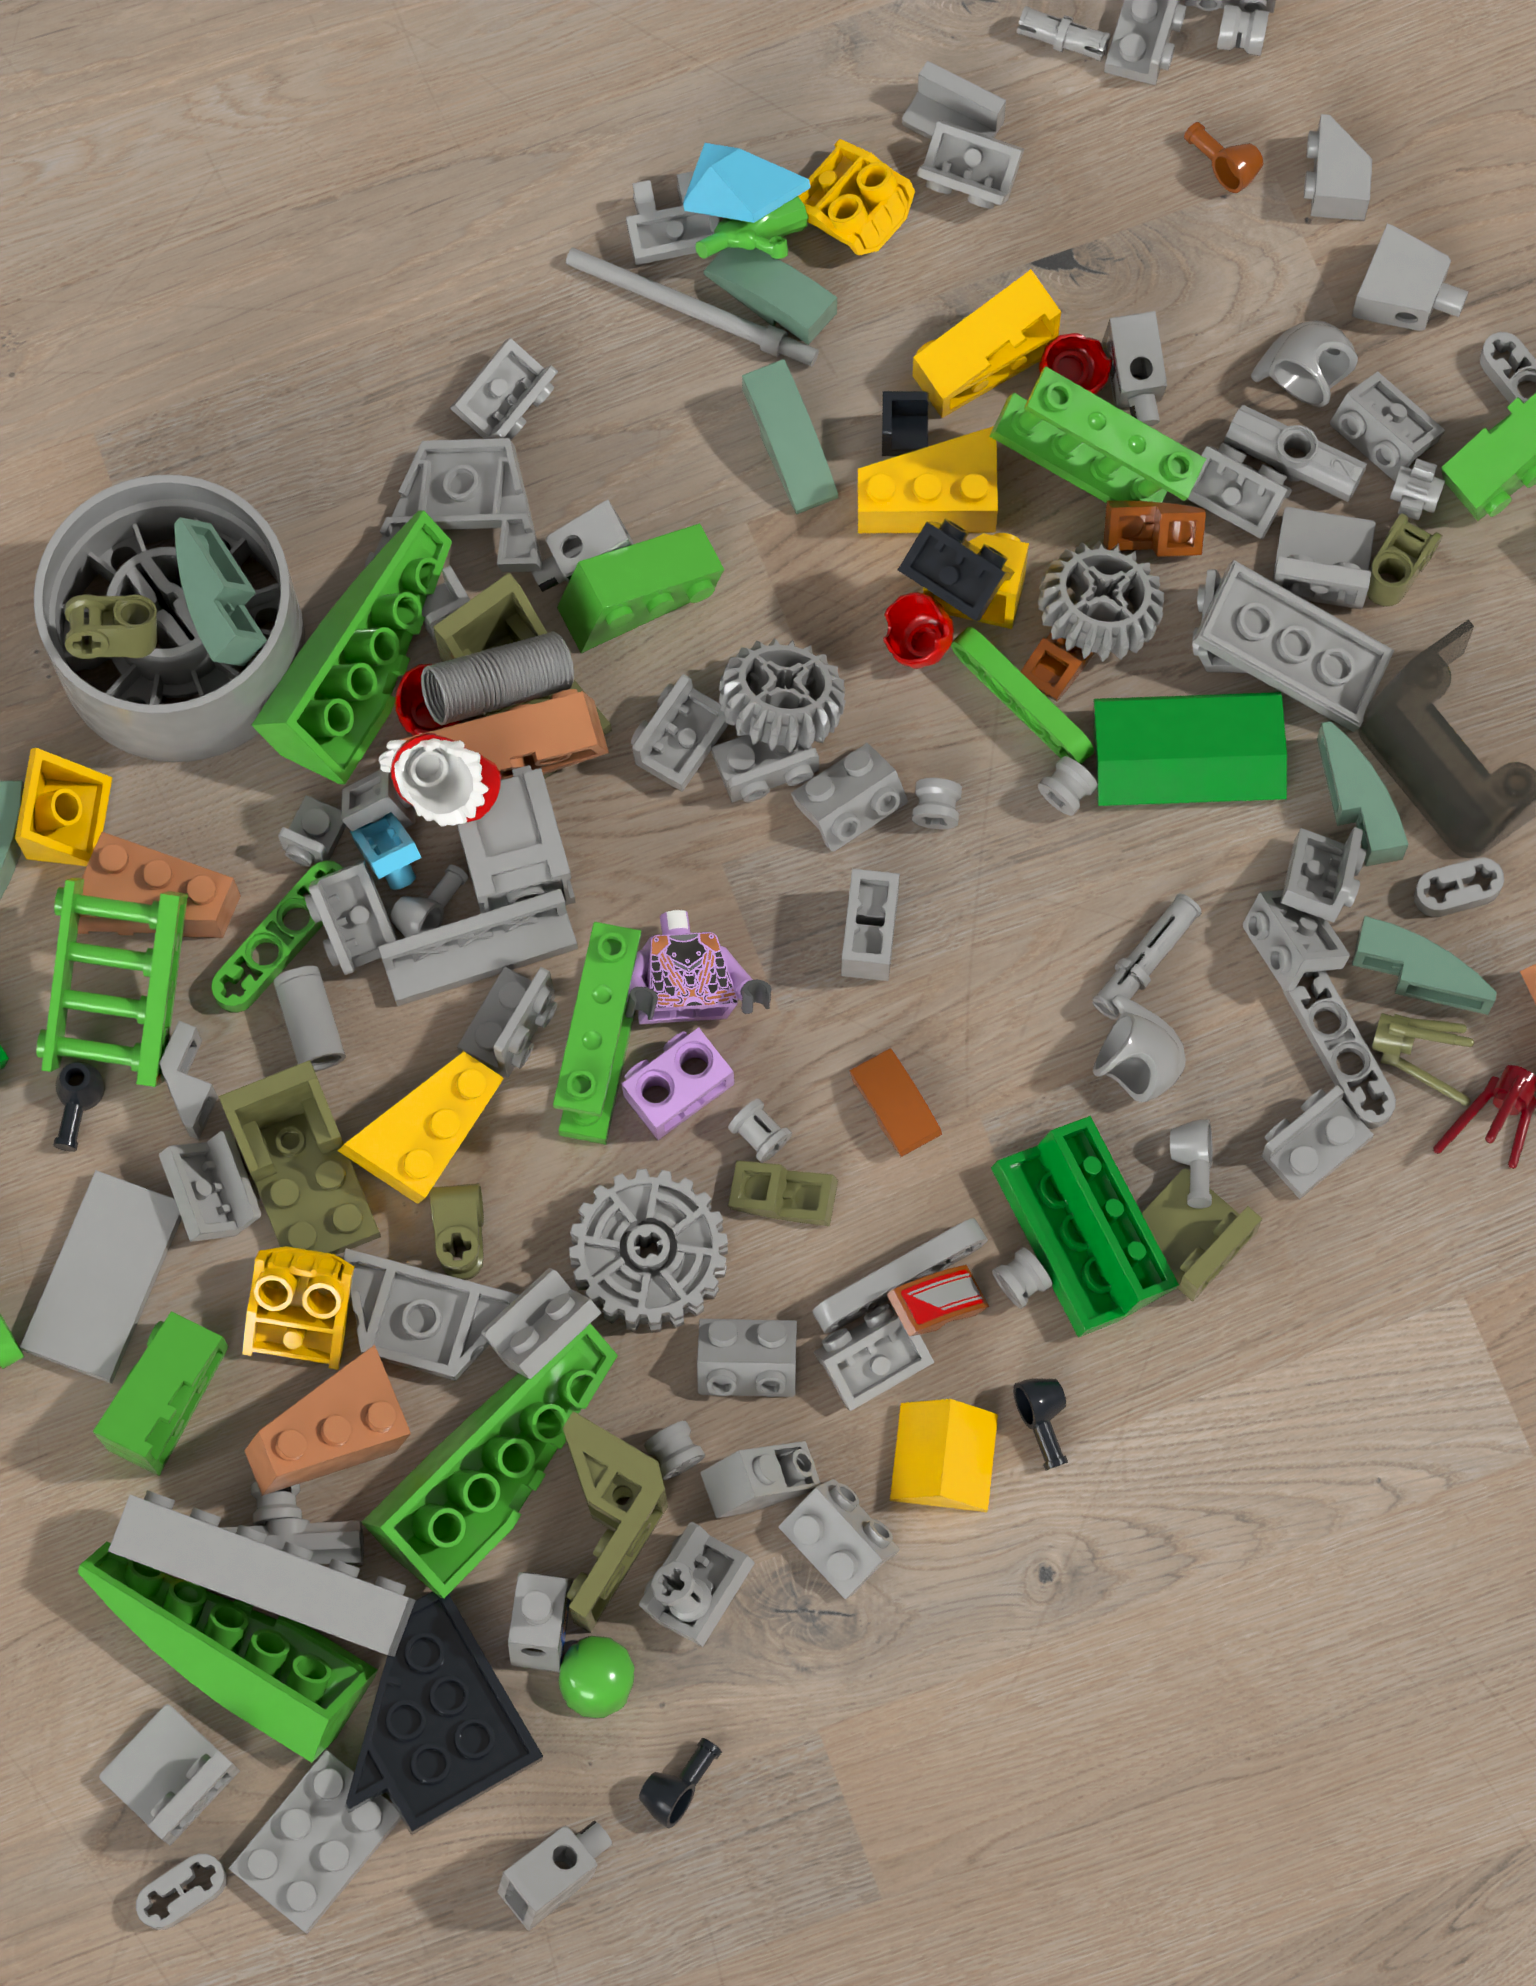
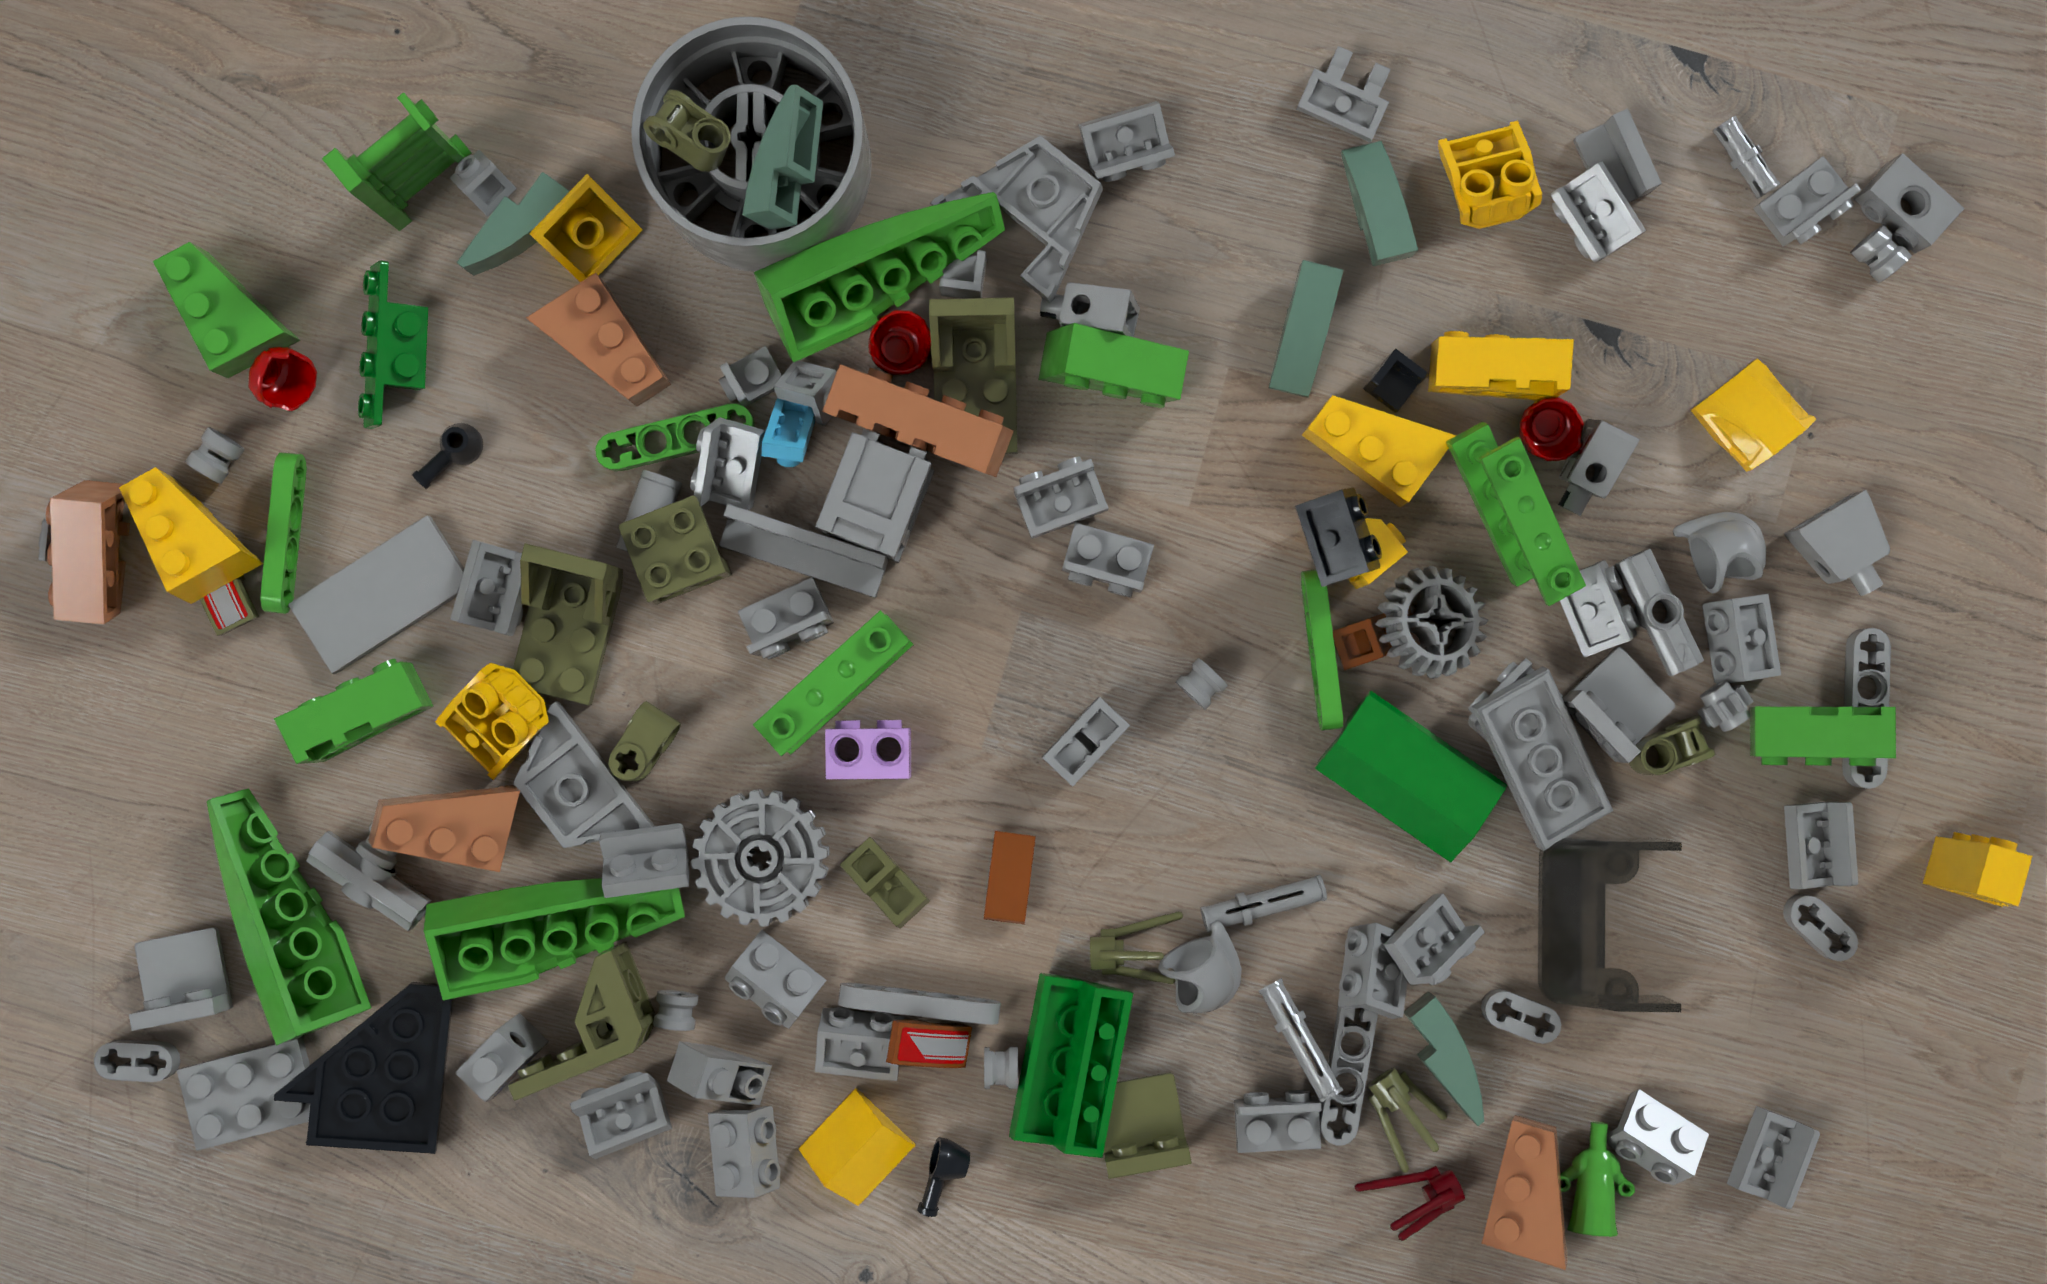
camera: 35 degrees right, 15 degrees up
(158, 963) = (564, 403): bright green fence -> none
(191, 1095) = (525, 509): light grey slope -> none
(261, 1574) = (326, 898): light grey brick -> none
(360, 1028) = (673, 550): none -> olive bracket
(420, 914) = (780, 497): light grey bar -> none
(425, 1128) = (669, 658): yellow wedge -> none
(442, 778) = (847, 424): white hair -> none
(508, 676) = (956, 373): light grey piece -> none
(538, 1887) = (363, 1241): light grey torso -> none
(596, 1676) = (512, 1124): bright green hair -> none
(670, 1795) = (500, 1238): black bar -> none
(679, 1598) = (613, 1119): light grey bush -> none
(689, 977) = (930, 684): torso -> none
(739, 185) = (1412, 109): medium azure slope -> none
(760, 1130) = (894, 818): light grey bush -> none
(763, 234) = (1403, 149): bright green piece -> none
(771, 339) = (1349, 241): light grey bar -> none
(794, 697) = (1136, 541): light grey gear -> none
(851, 796) = (1146, 631): light grey bracket -> none
(918, 630) = (1282, 547): red hair -> none
(1039, 1101) = (1109, 953): none -> olive plant
(1067, 785) = (1303, 739): light grey wheel -> none
(1156, 526) = (1514, 591): dark orange slope -> none
(1194, 1147) = (1189, 1063): light grey bar -> none
(1234, 165) = (1788, 355): dark orange bar -> none
(1240, 237) = (1752, 416): none -> yellow slope
(1275, 1048) = (1324, 1085): none -> light grey pin
(1340, 174) = (1863, 420): light grey slope -> none
(1360, 797) = (1504, 900): sand green slope -> none

